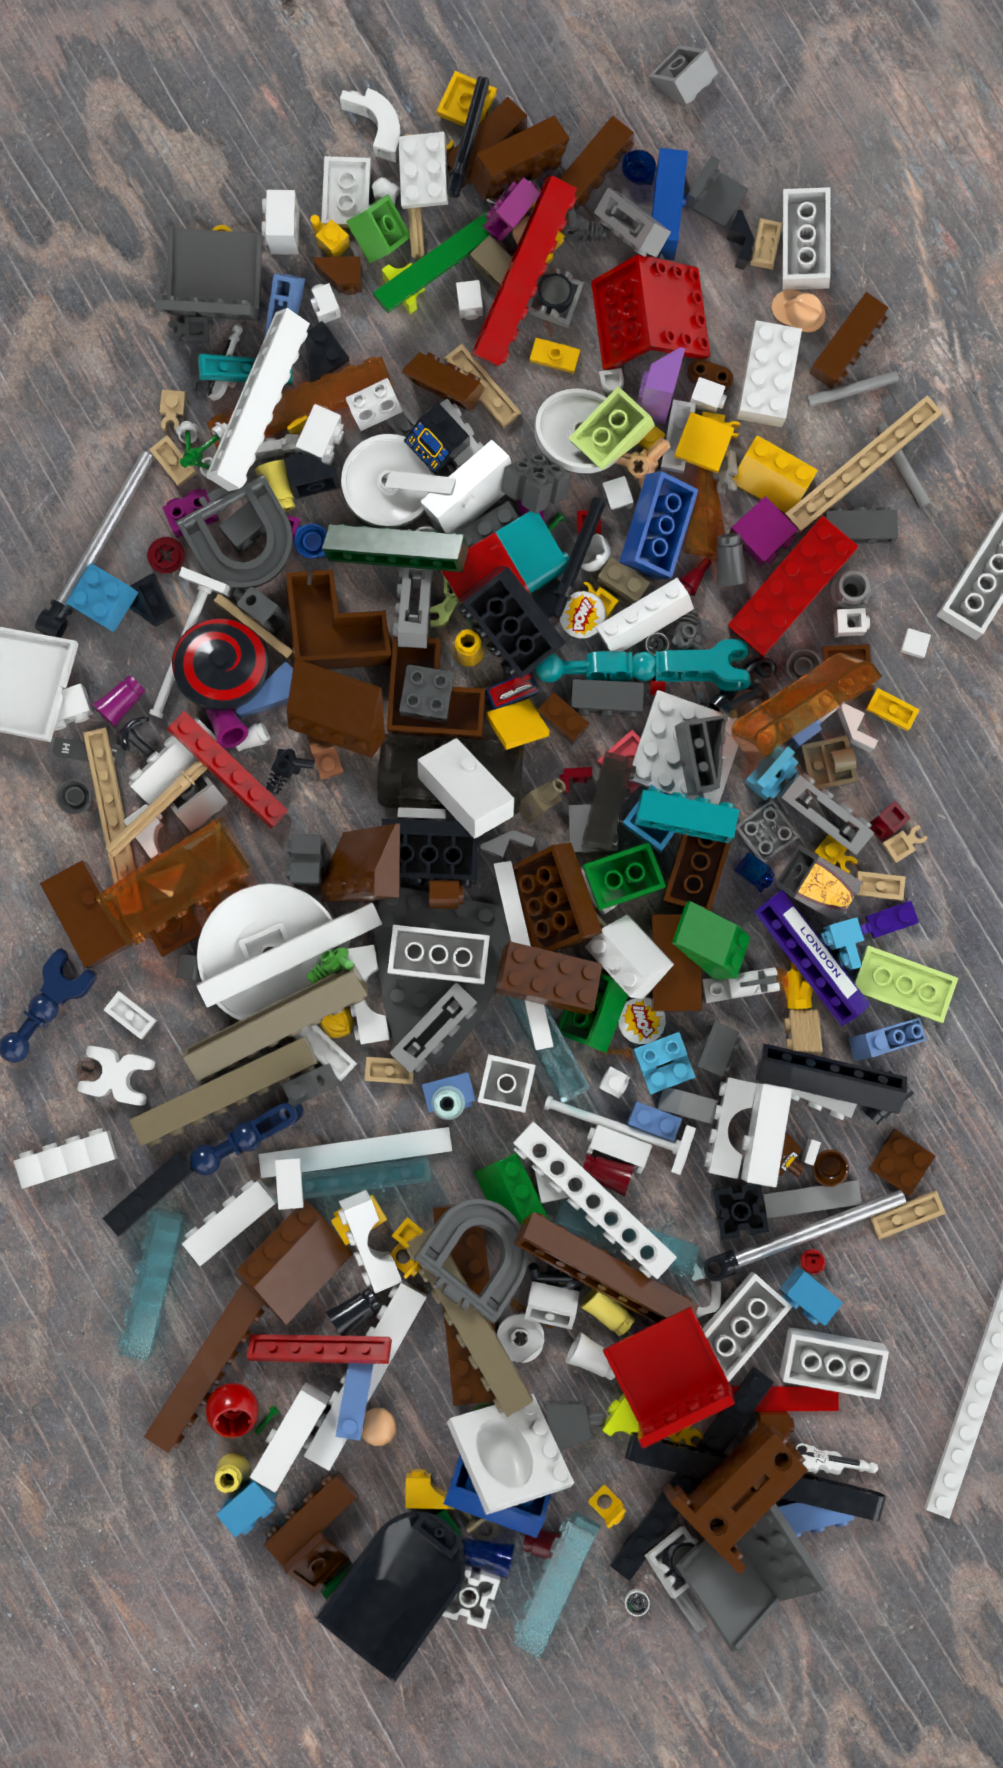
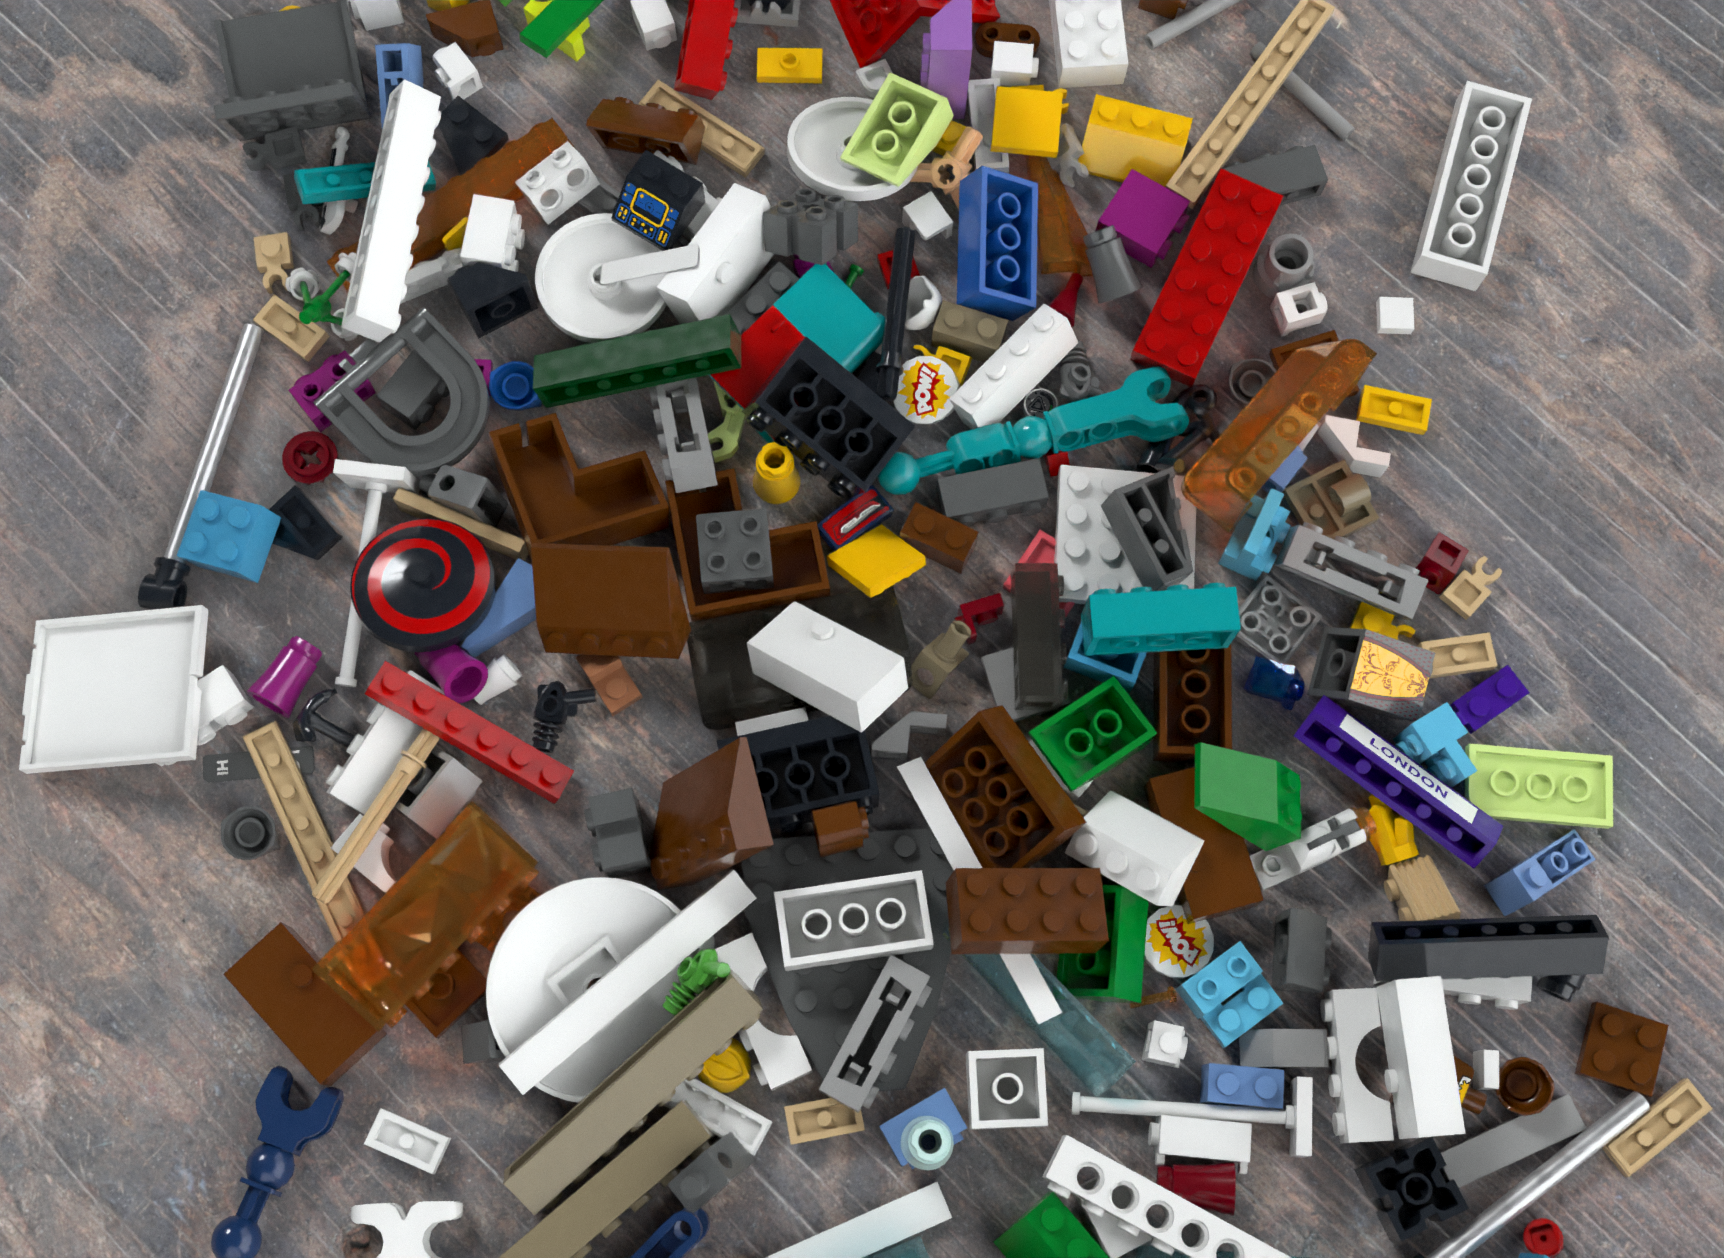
camera: 15 degrees left, 10 degrees down
(278, 479) = (445, 309): light yellow plant -> none

